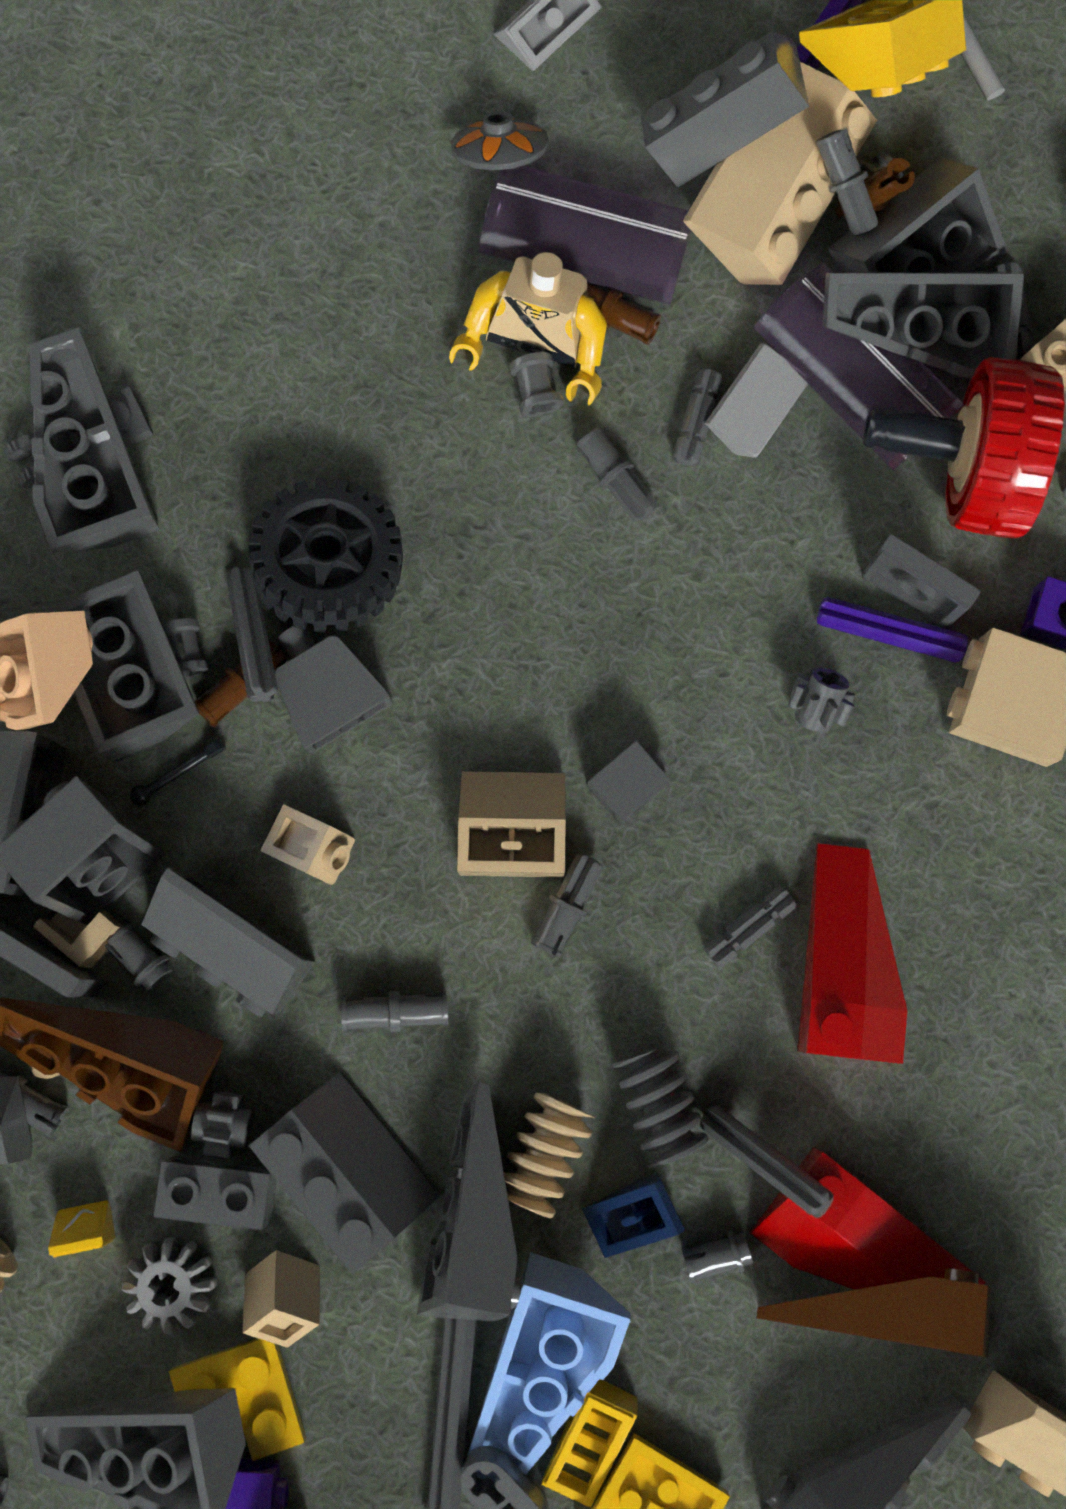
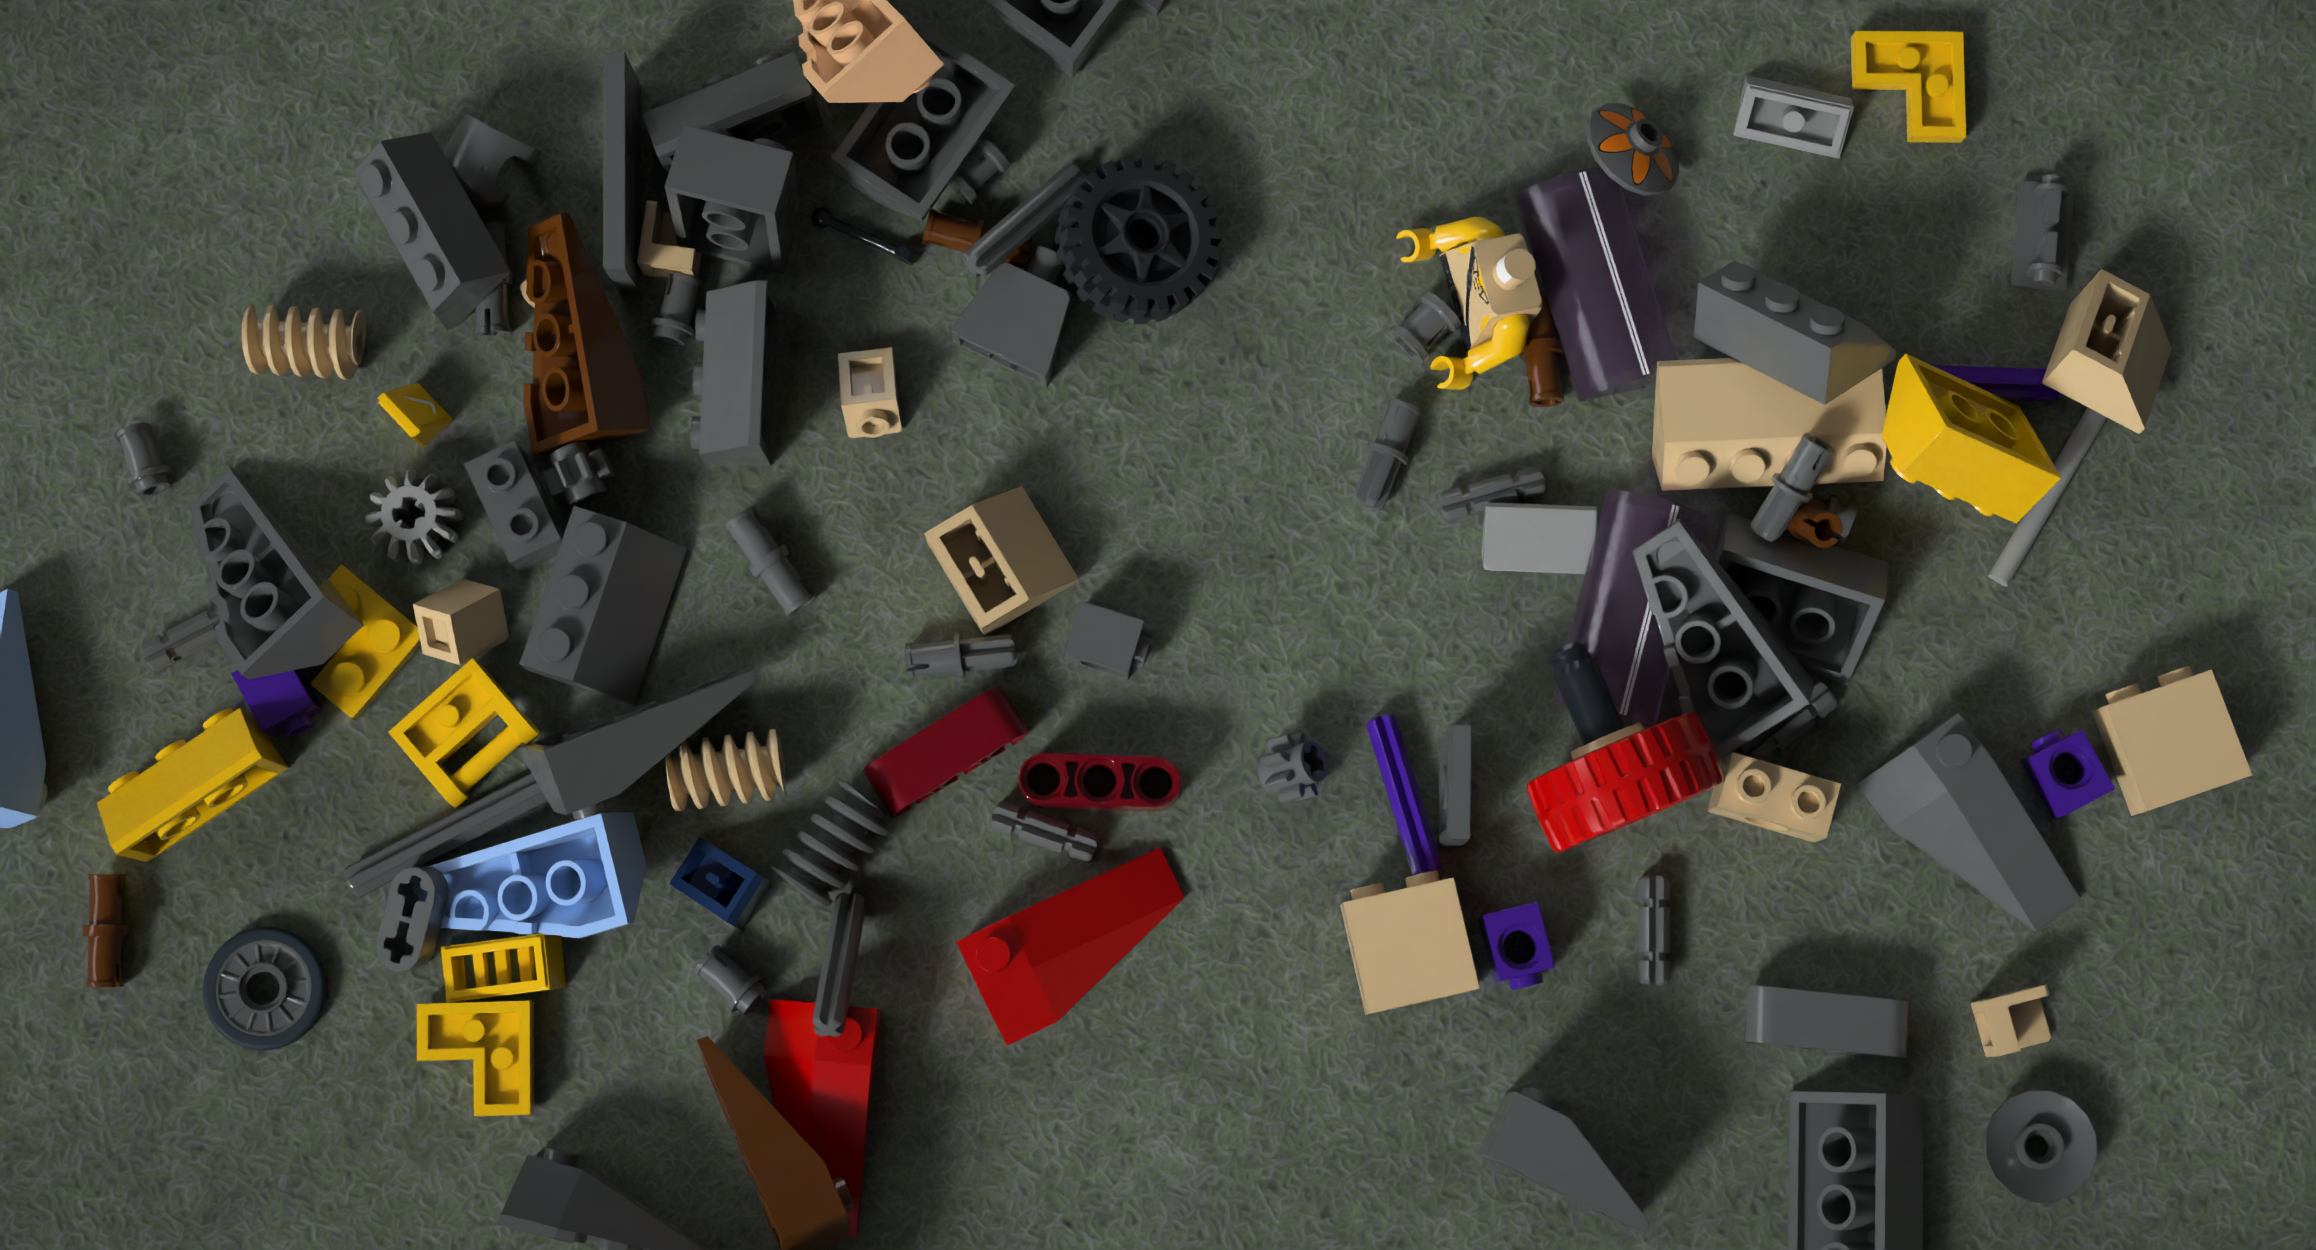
camera: 55 degrees right, 0 degrees up
(358, 1358) = (451, 719): none -> yellow plate
(639, 965) = (945, 749): none -> dark red beam
(761, 843) = (1074, 769): none -> dark red beam

